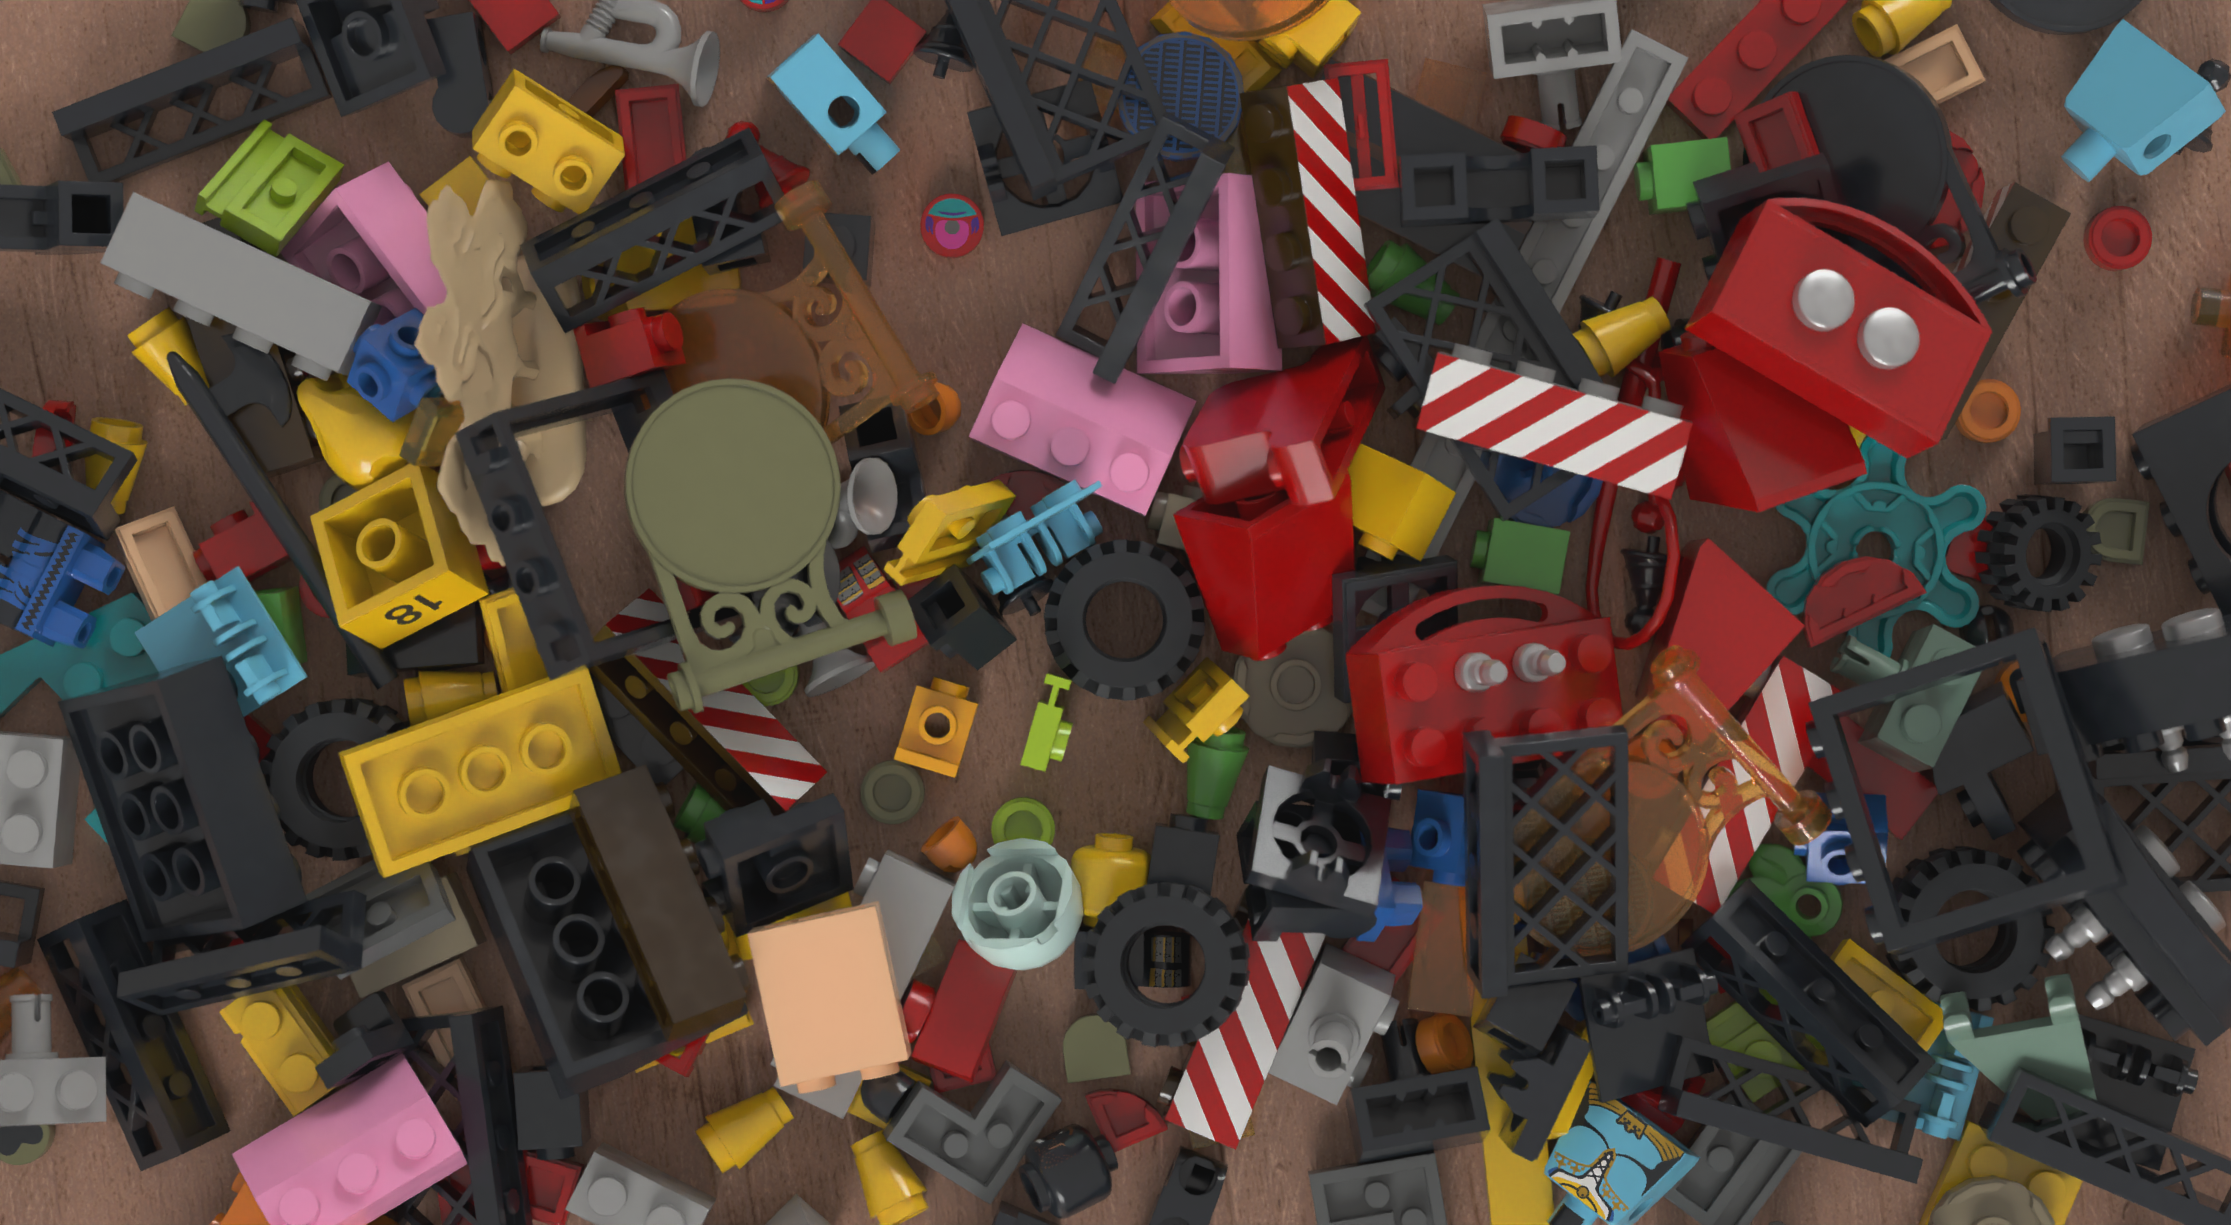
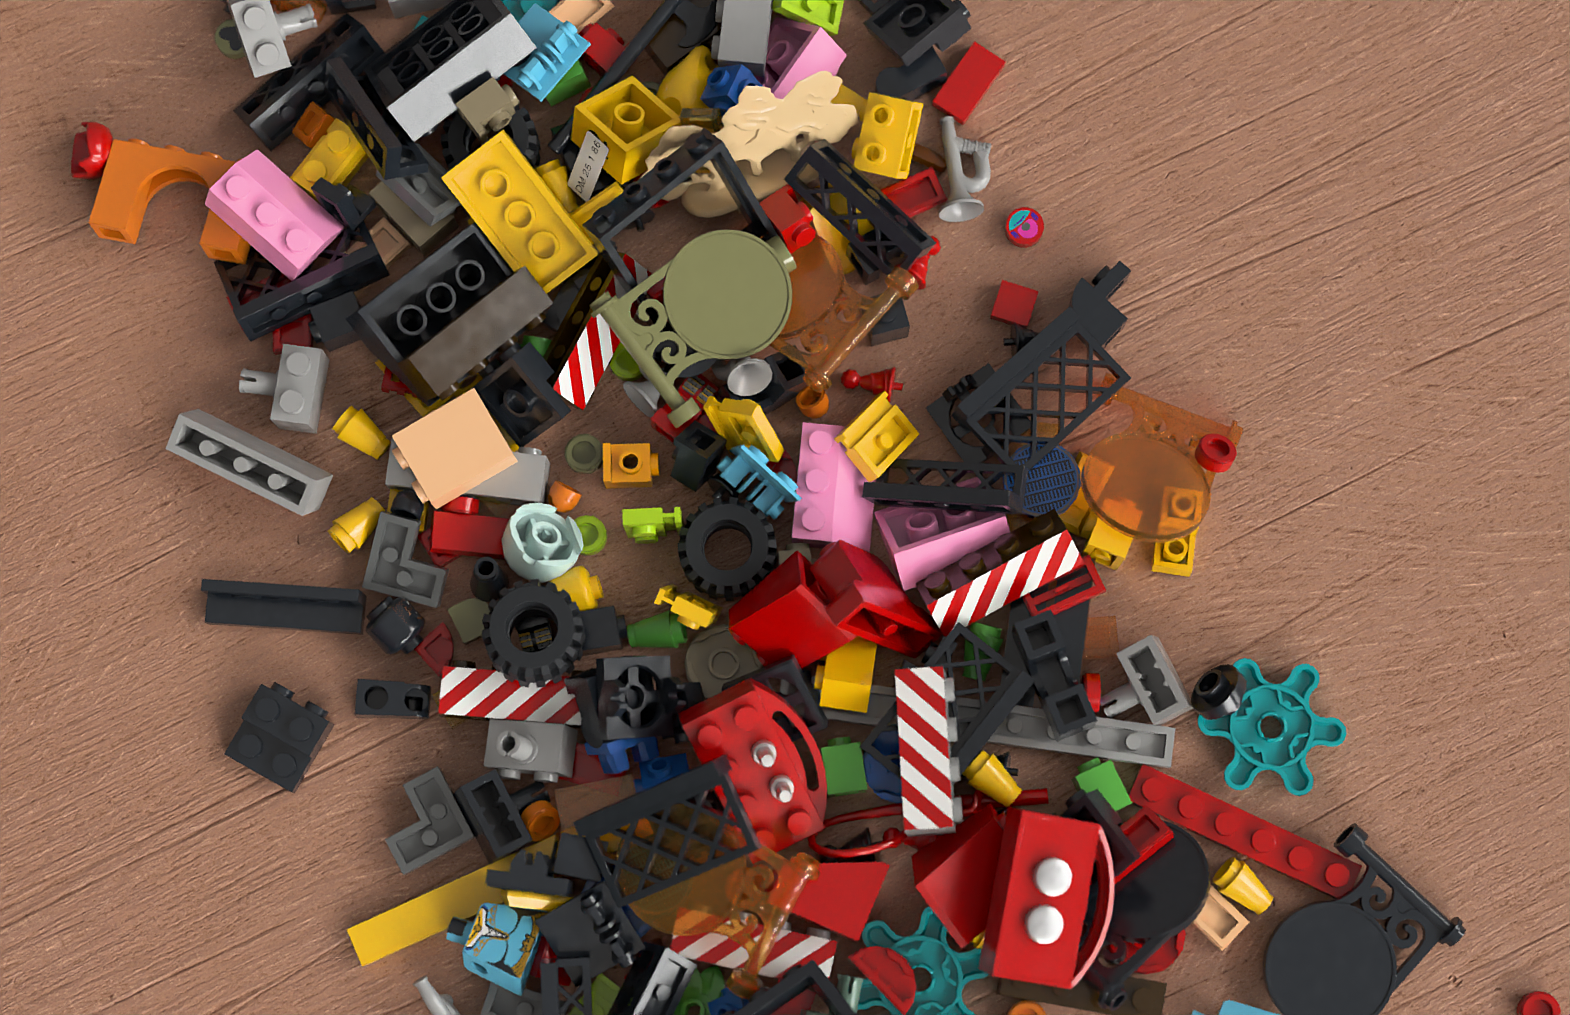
camera: 75 degrees right, 10 degrees down
(213, 1050) = (313, 124): none -> orange tile
(294, 765) = (487, 108): none -> dark tan brick
(439, 636) = (588, 166): none -> white sticker
(676, 380) = (778, 245): none -> olive tile
(812, 81) = (974, 269): medium azure torso -> none
(937, 295) = (873, 382): none -> red piece
(952, 226) = (921, 379): tile -> none
(1027, 328) = (877, 436): none -> yellow plate
(1061, 1009) = (488, 579): none -> black cone

